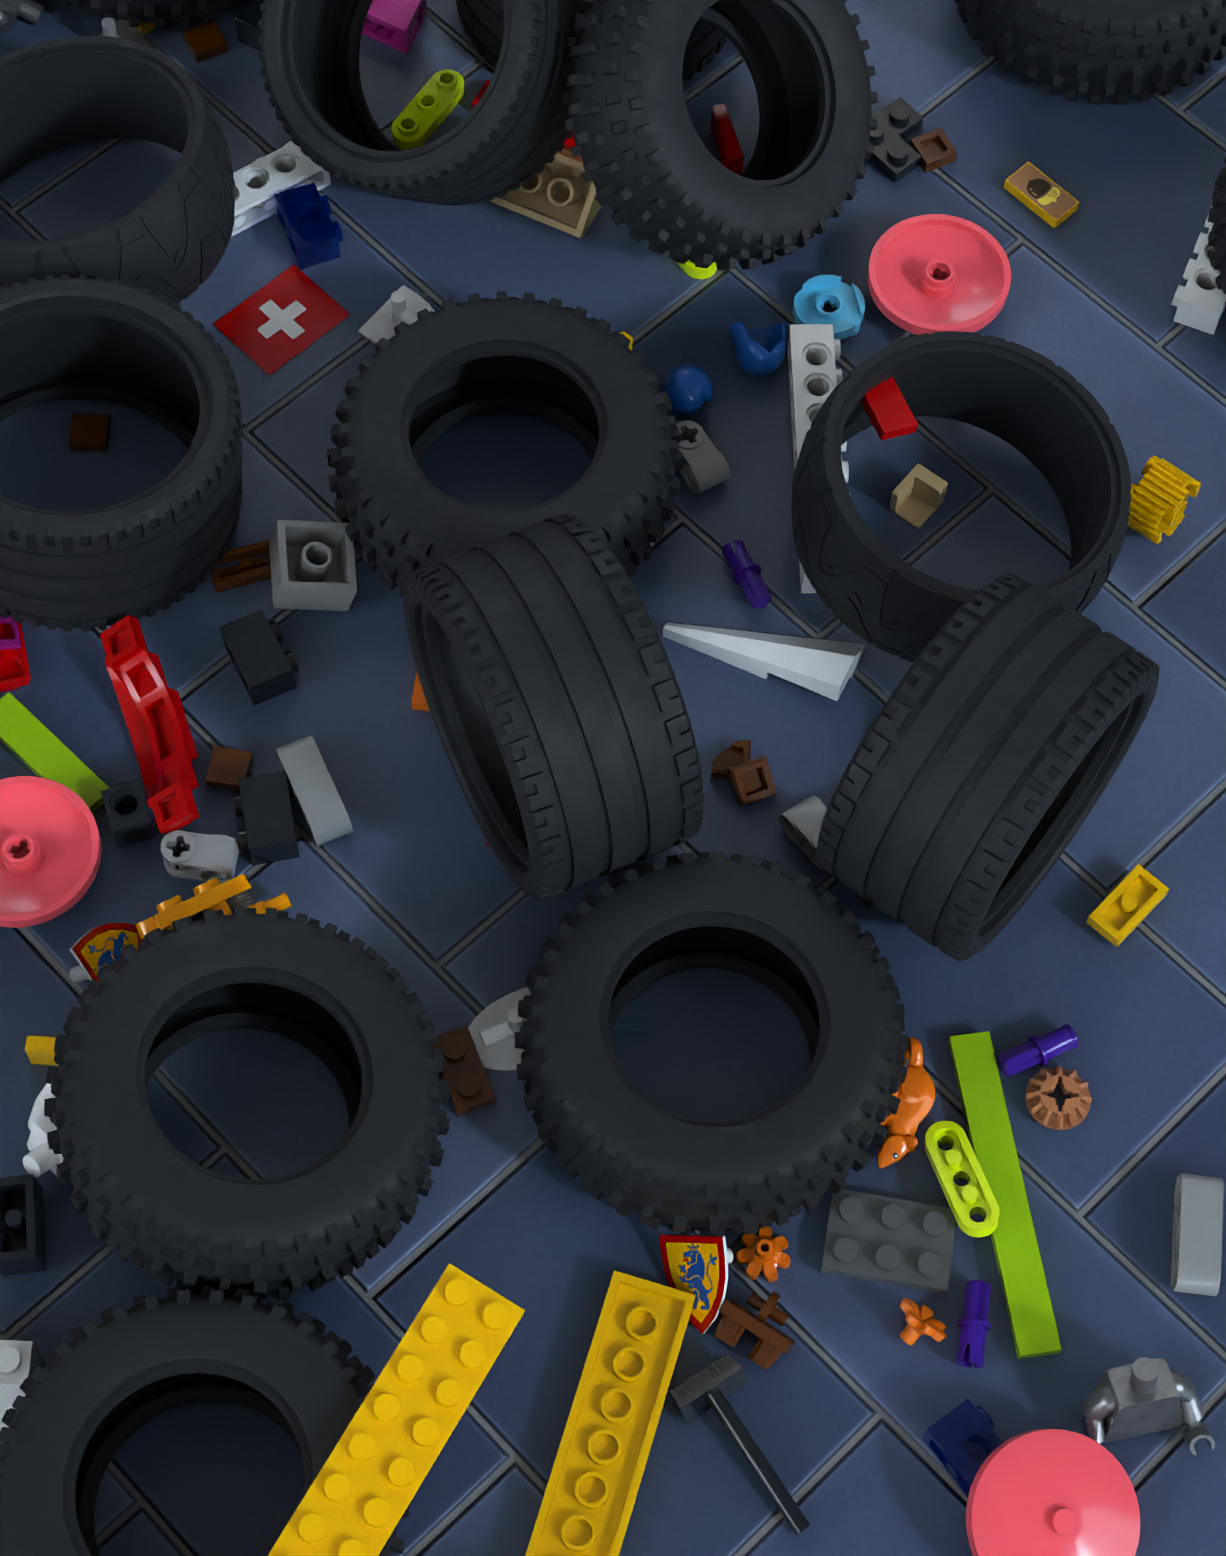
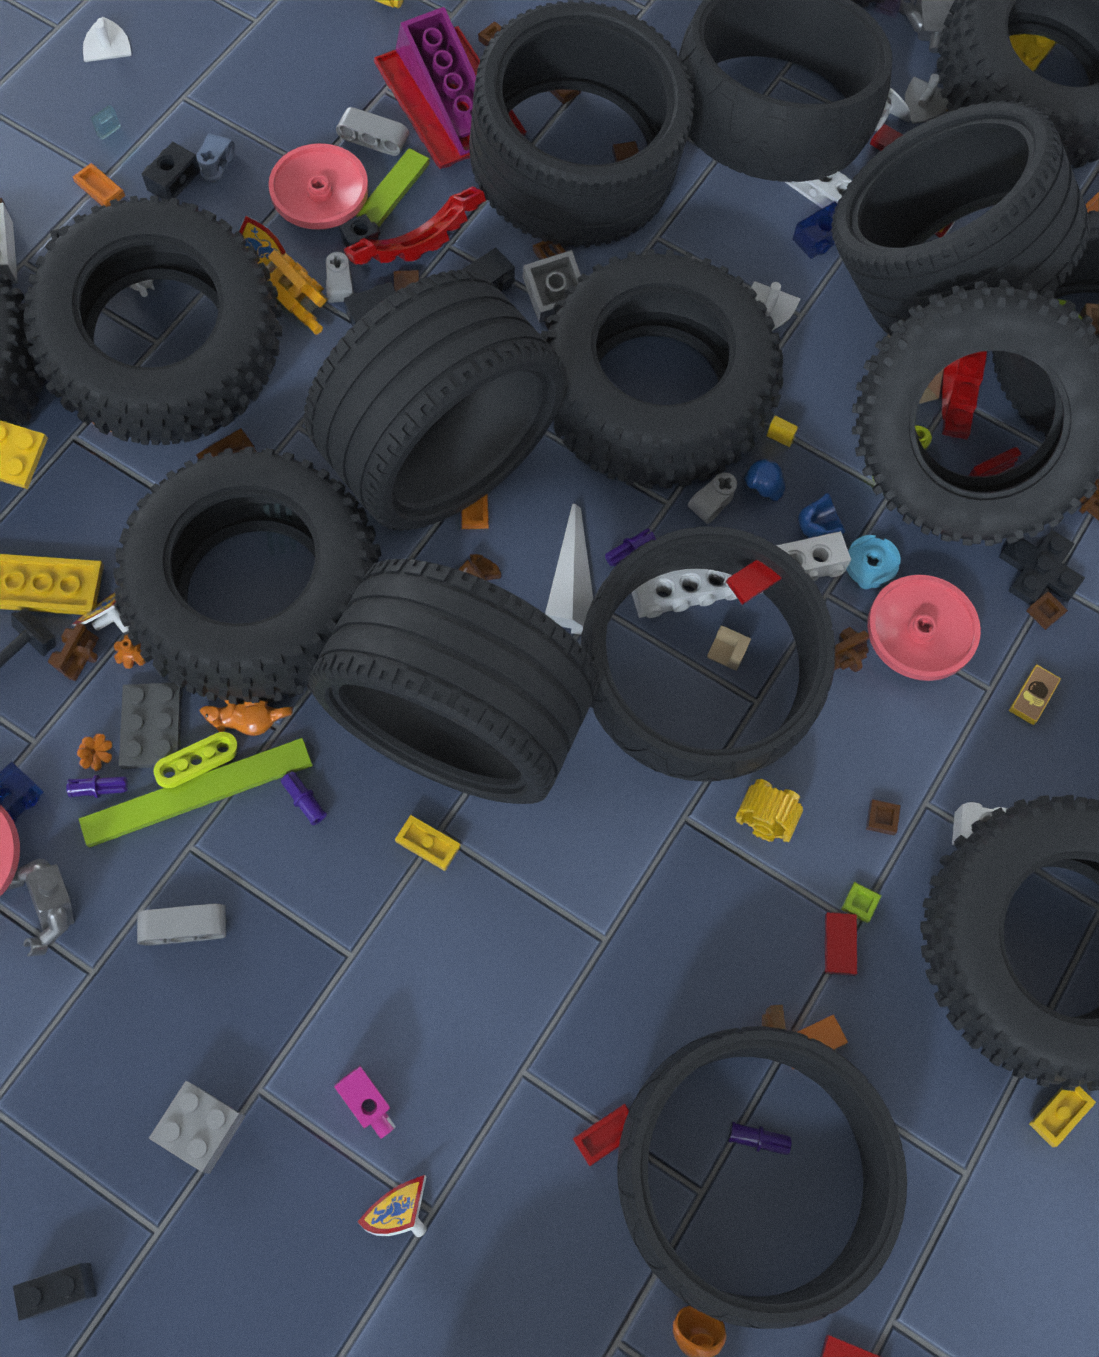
camera: 75 degrees right, 5 degrees up
(281, 319) = (748, 237): red sticker -> none
(1044, 1107) = (282, 825): nougat gear -> none
(1171, 392) = (883, 817): none -> reddish brown tile

